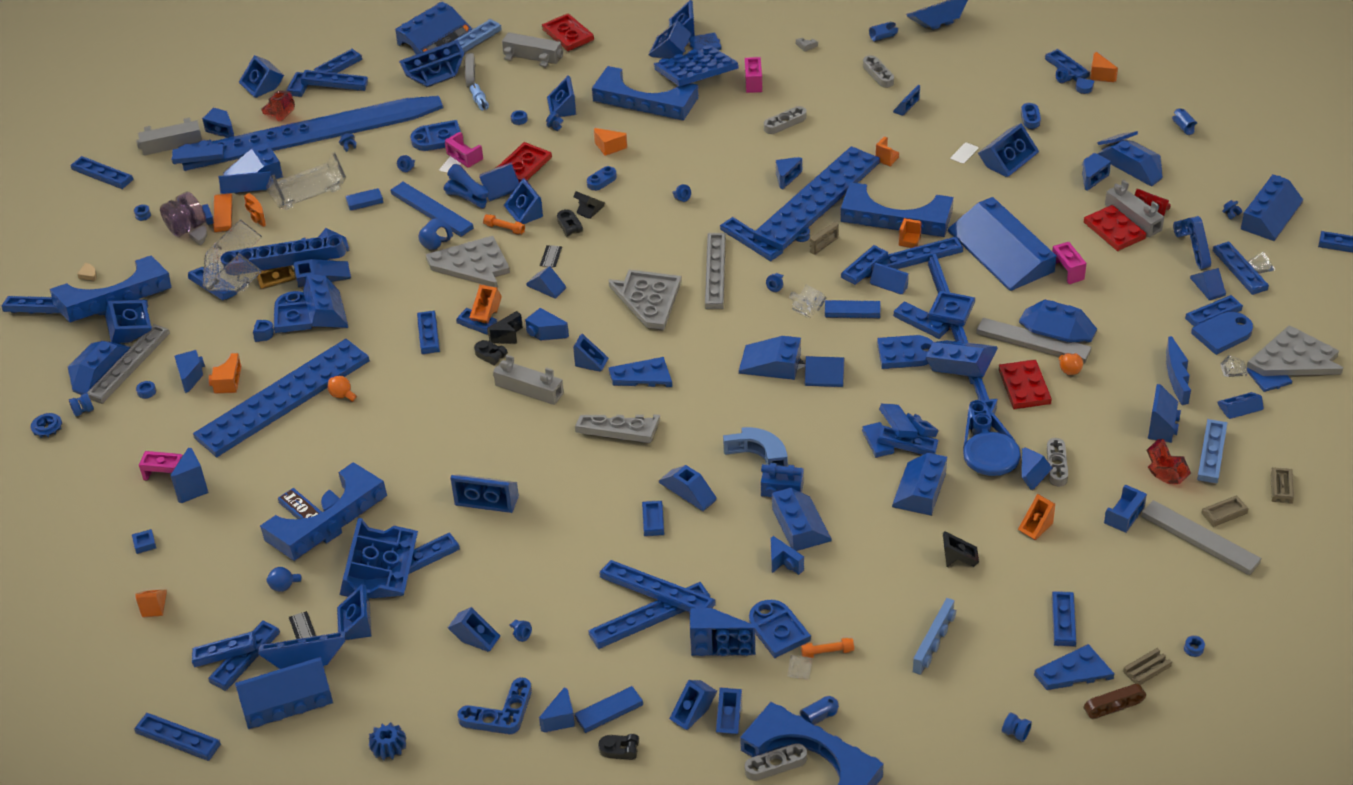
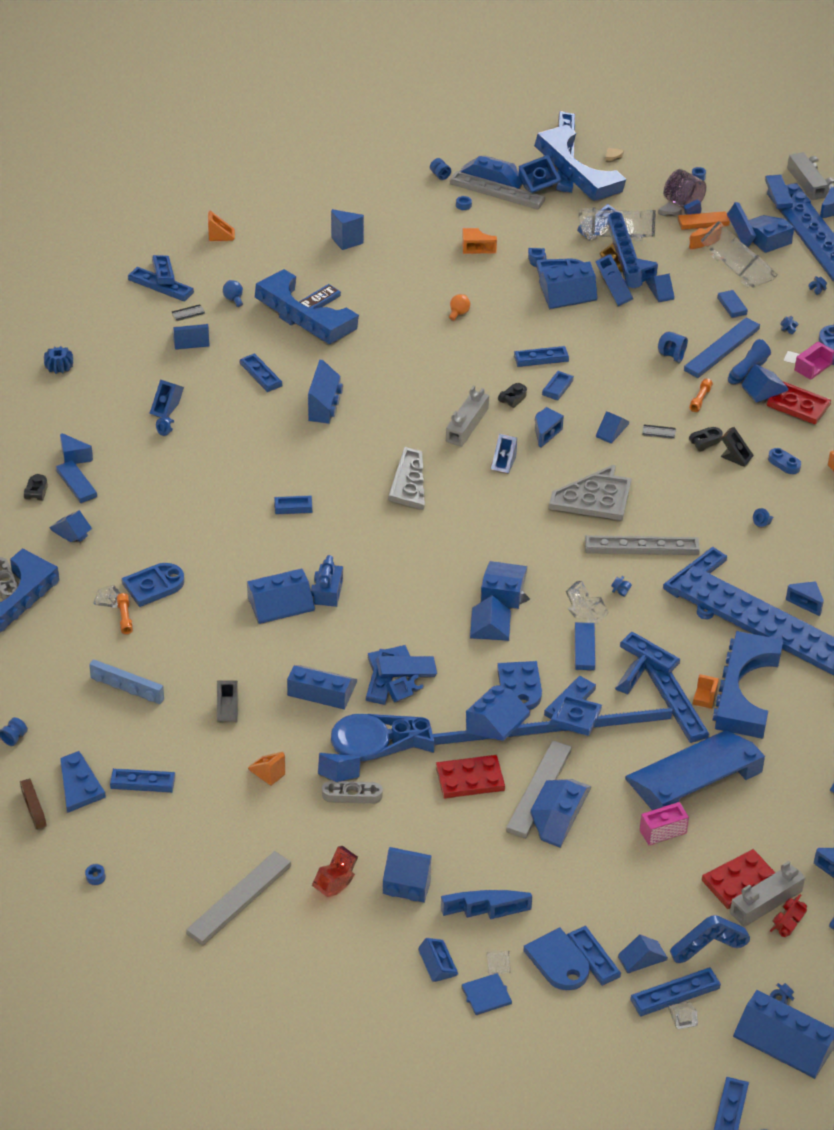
camera: 85 degrees right, 0 degrees up
(38, 424) = (425, 156): blue gear -> none
(102, 172) = (755, 146): blue tile -> none
(144, 541) = (286, 221): blue tile -> none
(158, 462) = (367, 209): dark pink panel -> none
(177, 736) = (84, 259): blue tile -> none
(189, 368) = (485, 219): blue slope -> none
(280, 398) = (455, 278): blue plate -> none
(284, 693) = (107, 300): blue slope -> none
(300, 650) = (153, 305): blue wedge -> none
(379, 561) = (248, 338): blue piece -> none
(473, 261) = (644, 378): light grey wing -> none
(485, 303) = (571, 382): orange arch -> none
(502, 717) = (75, 424): blue beam -> none
(505, 330) = (540, 399): black slope -> none
(524, 203) = (731, 407): blue slope -> none
(637, 620) = (178, 505): blue tile -> none
(643, 372) = (485, 495): blue wing -> none
(654, 587) = (202, 504): blue tile -> none
(690, 486) = (323, 521): blue slope -> none
(720, 634) = (138, 534): blue slope -> none
(729, 710) = (57, 544): blue slope -> none
(757, 442) = (376, 576): medium blue arch -> none
(784, 555) = (233, 583): blue slope -> none
(820, 710) = (51, 604): blue piece -> none
(824, 238) = (694, 623): dark tan tile -> none
(1071, 363) = (495, 811): orange piece -> none
(1126, 510) = (277, 839): blue panel -> none
(1144, 664) = (68, 824): dark tan tile -> none
(1212, 451) = (360, 920): medium blue plate -> none
(1225, 511) = (275, 923): dark tan tile -> none
(1282, 496) = (310, 982): dark tan tile -> none
(1295, 354) = (517, 1020): light grey wing -> none

